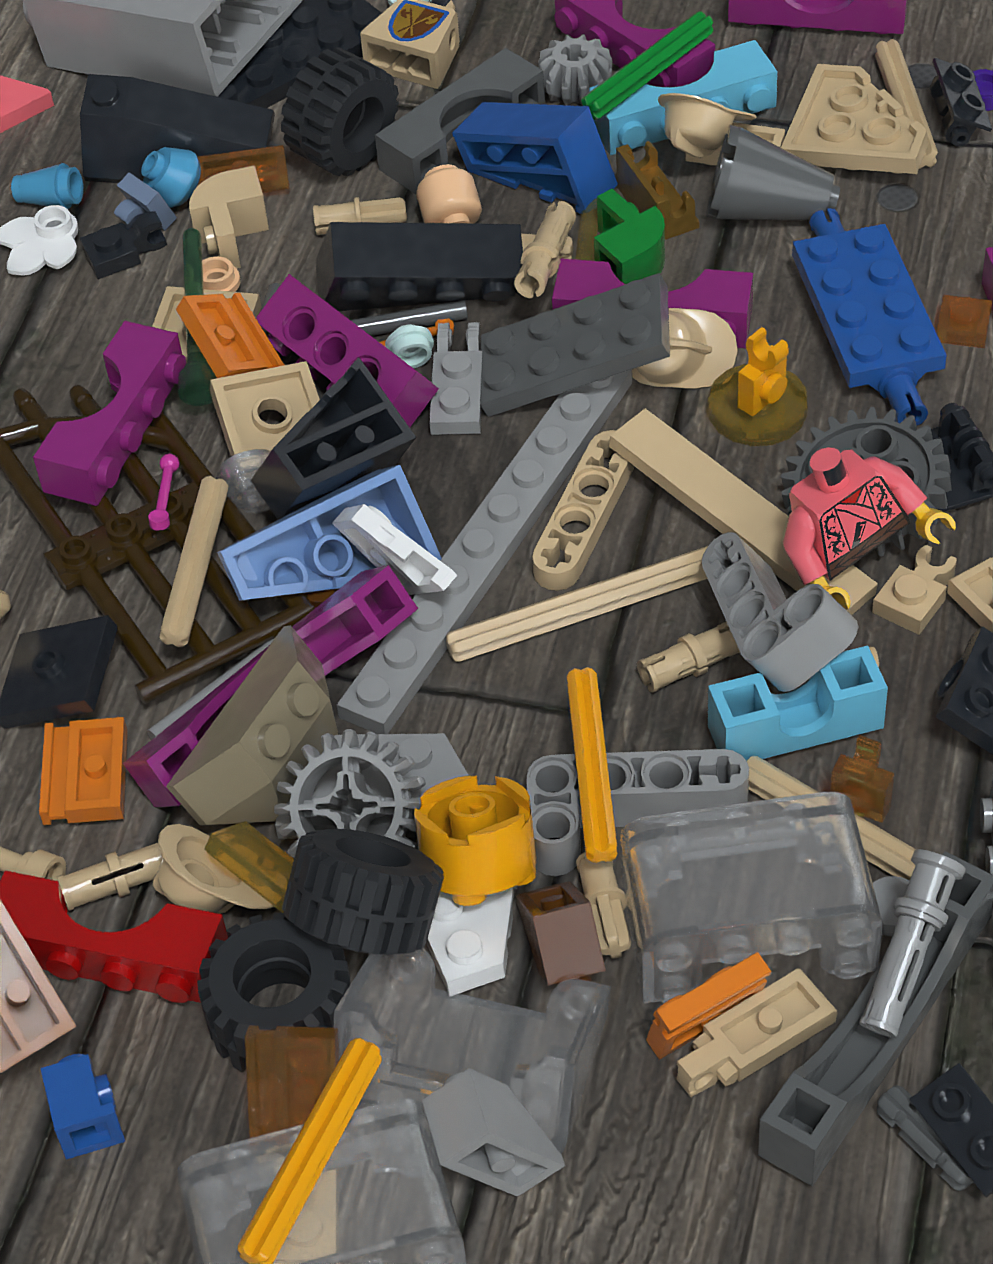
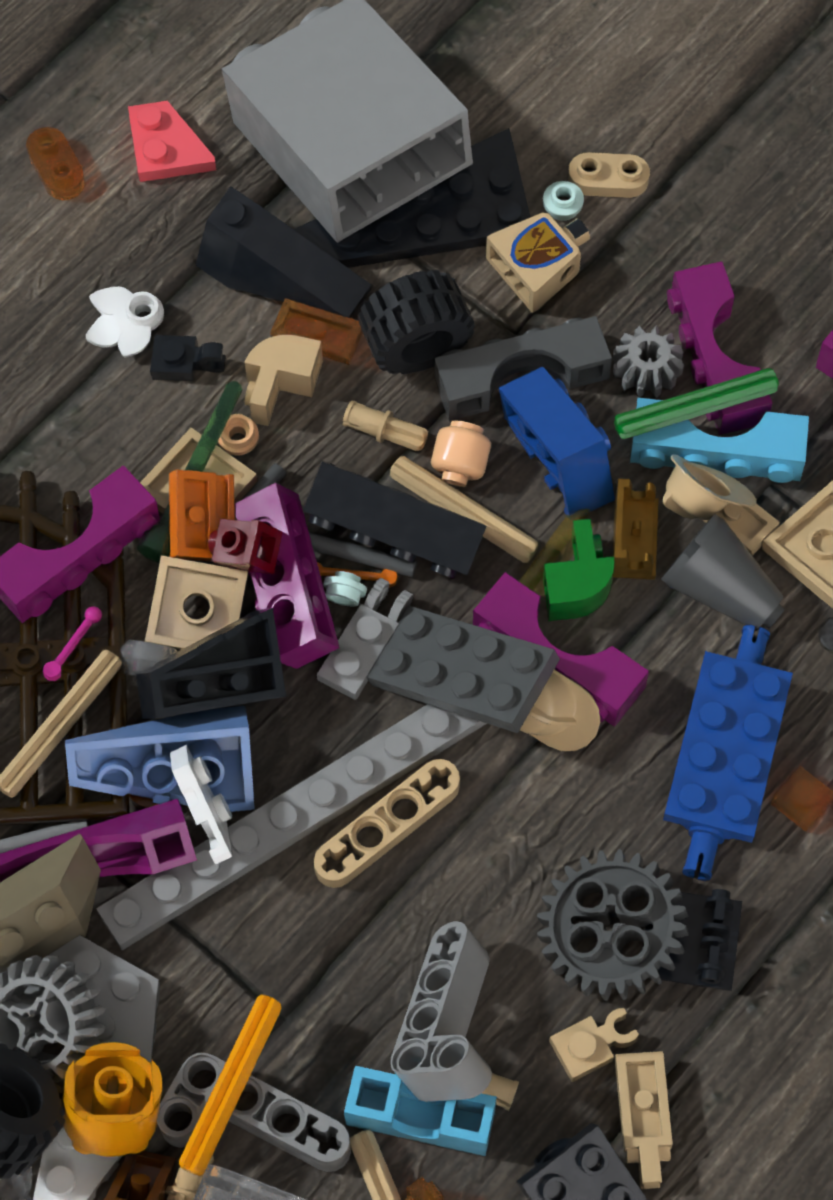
camera: 25 degrees right, 15 degrees up
(49, 186) = (160, 268): dark azure cone -> none
(139, 200) = (219, 327): sand blue tile -> none
(172, 174) = (256, 310): dark azure cone -> none
(293, 332) = (237, 545): none -> dark red brick
(541, 257) = (486, 567): tan pin -> none
(575, 606) = (333, 913): tan axle -> none
(688, 657) = (371, 1009): tan pin -> none
(721, 498) = (499, 901): tan tile -> none
(765, 374) = (589, 784): light orange plate -> none
(770, 425) = (585, 792): clear yellow tile -> none
(848, 512) = (559, 965): coral torso -> none

